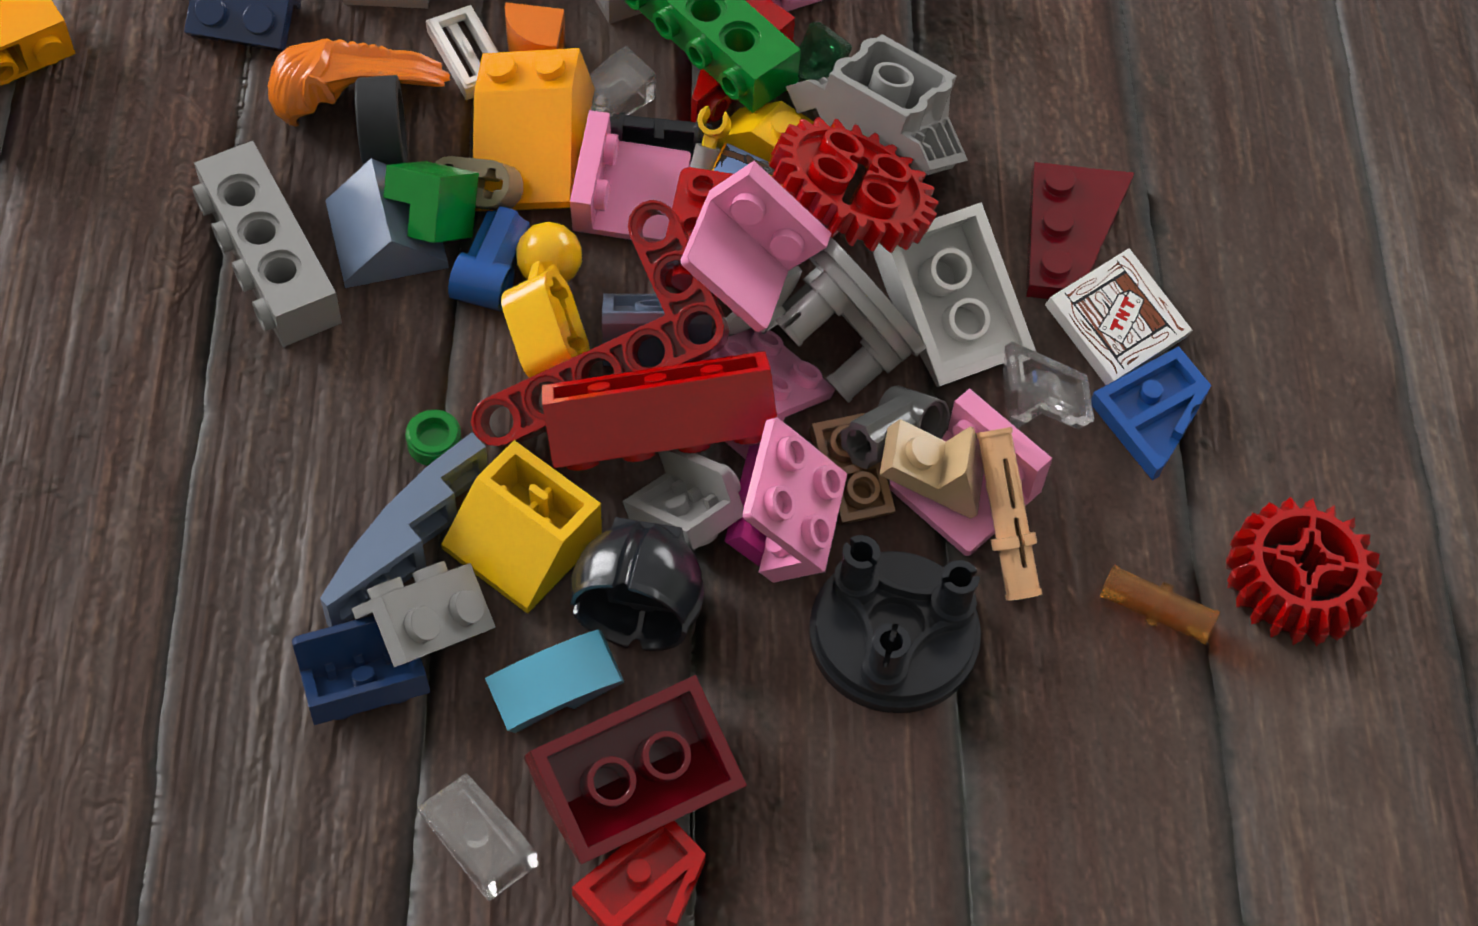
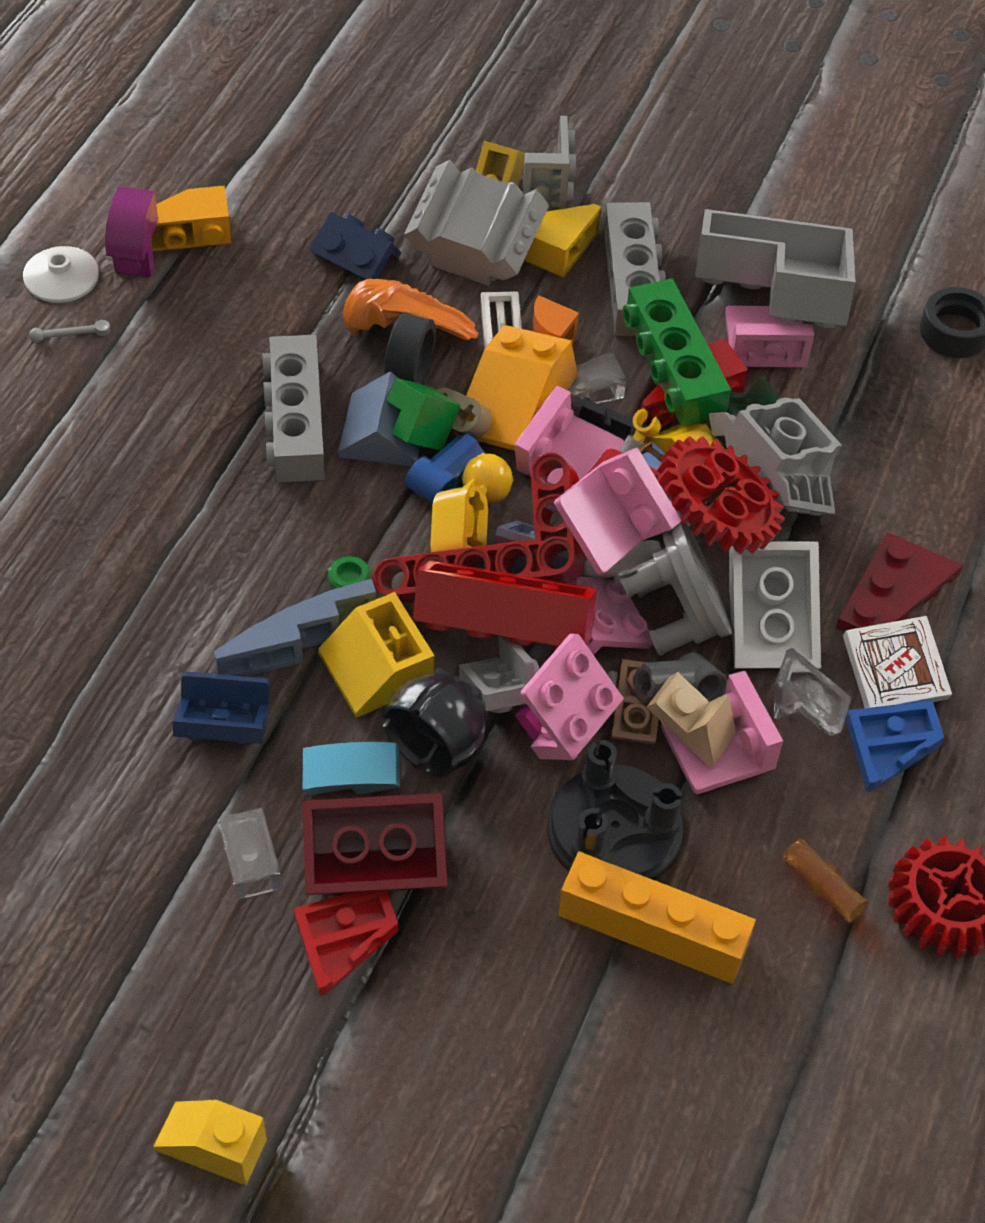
camera: 25 degrees right, 5 degrees down
(429, 613) = (283, 689): light grey bracket -> none
(1000, 725) = (655, 917): none -> light orange brick
(1009, 514) = (726, 823): light nougat pin -> none

